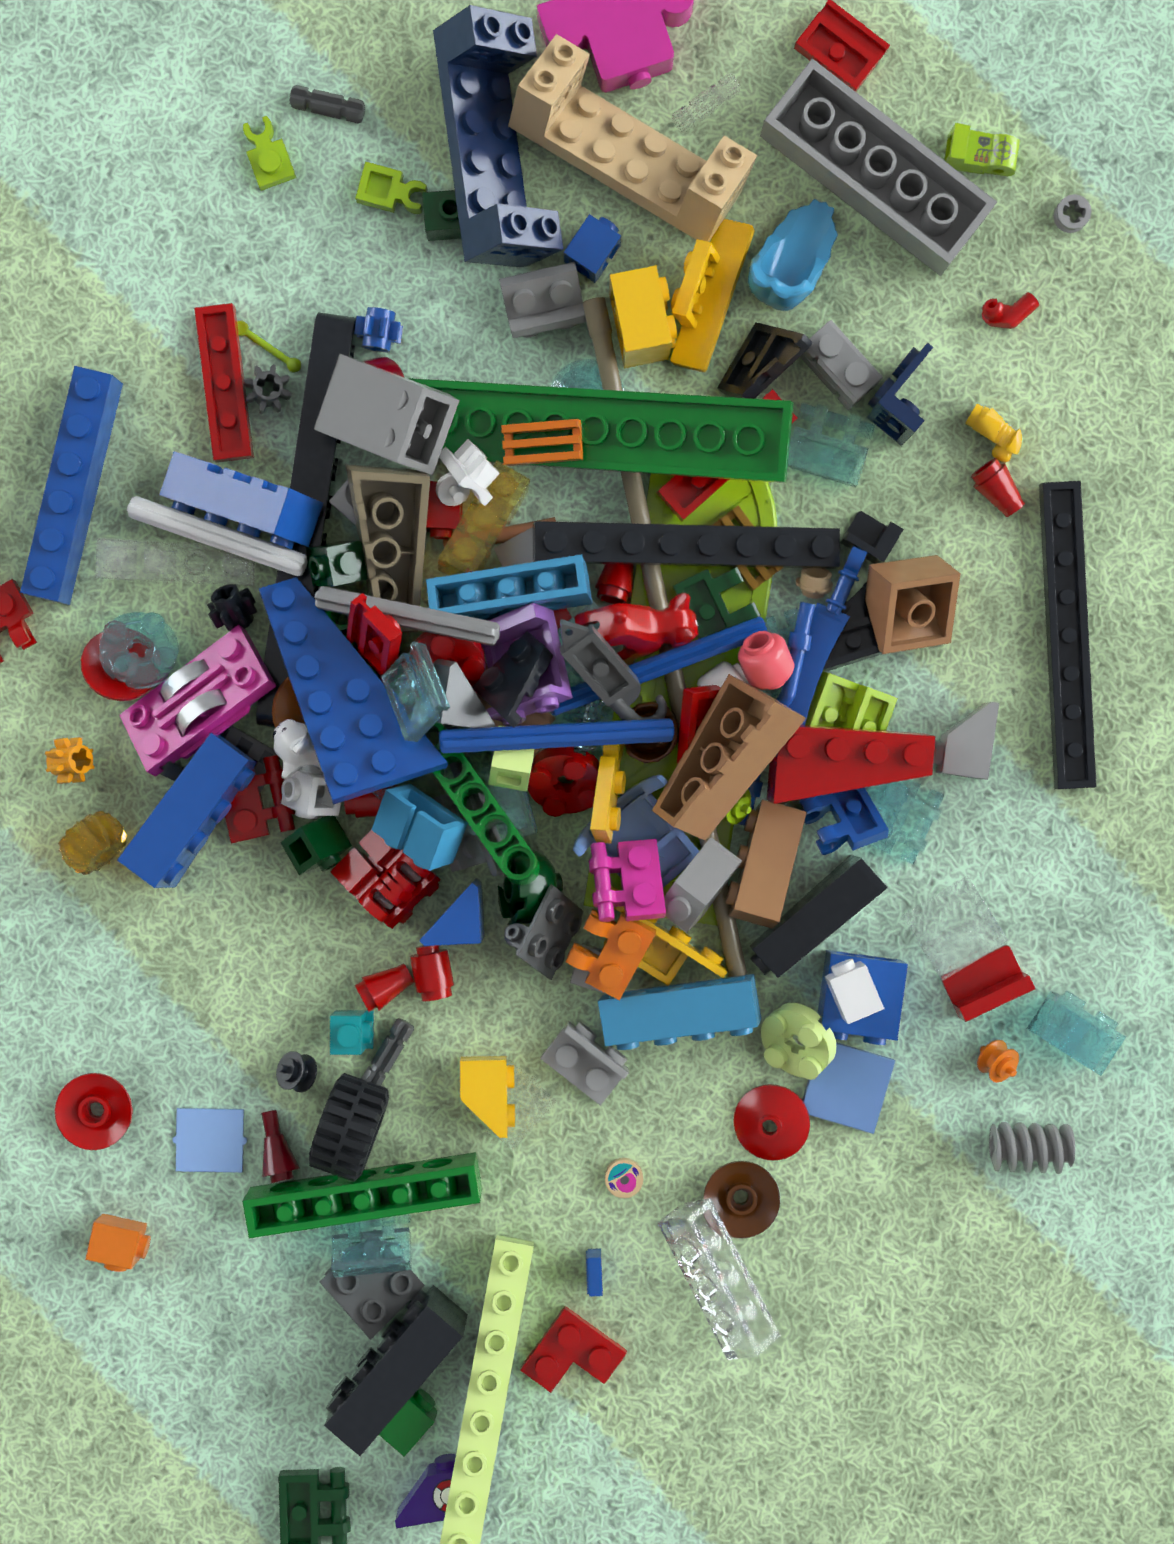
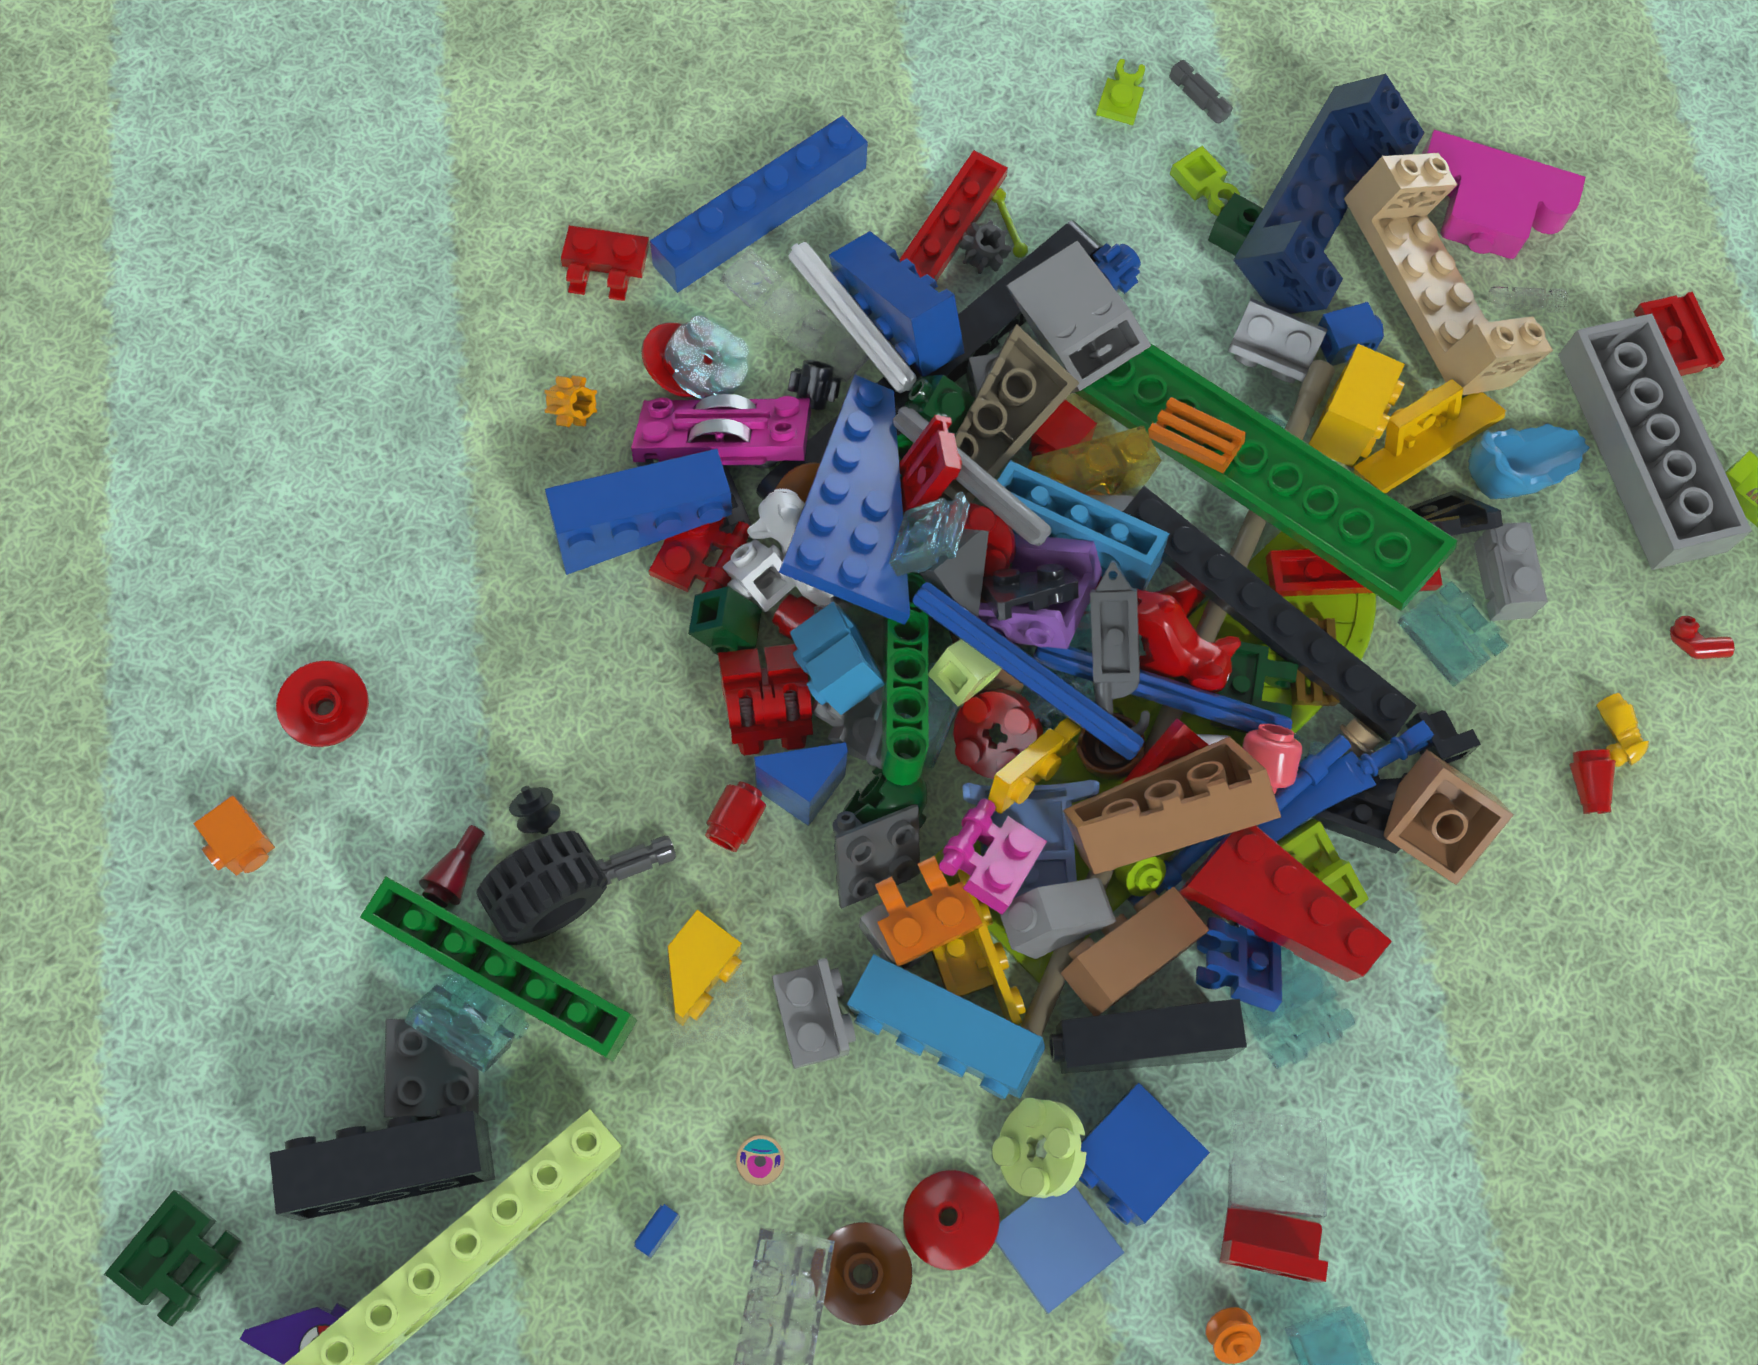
camera: 35 degrees right, 20 degrees down
(92, 842) = (526, 473): clear yellow gear -> none
(209, 1140) = (400, 815): light blue piece -> none
(351, 1032) = (616, 811): teal brick -> none
(382, 987) = (679, 796): red cone -> none
(410, 1422) = (347, 1235): green brick -> none
(467, 471) = (1108, 413): white hips -> none
(570, 1341) = (574, 1290): red plate -> none
(853, 990) = (1138, 1129): white brick -> none
(895, 416) = (1541, 635): dark blue bracket -> none
(968, 745) = (1410, 991): light grey slope -> none
(1067, 635) = (1575, 967): black plate -> none

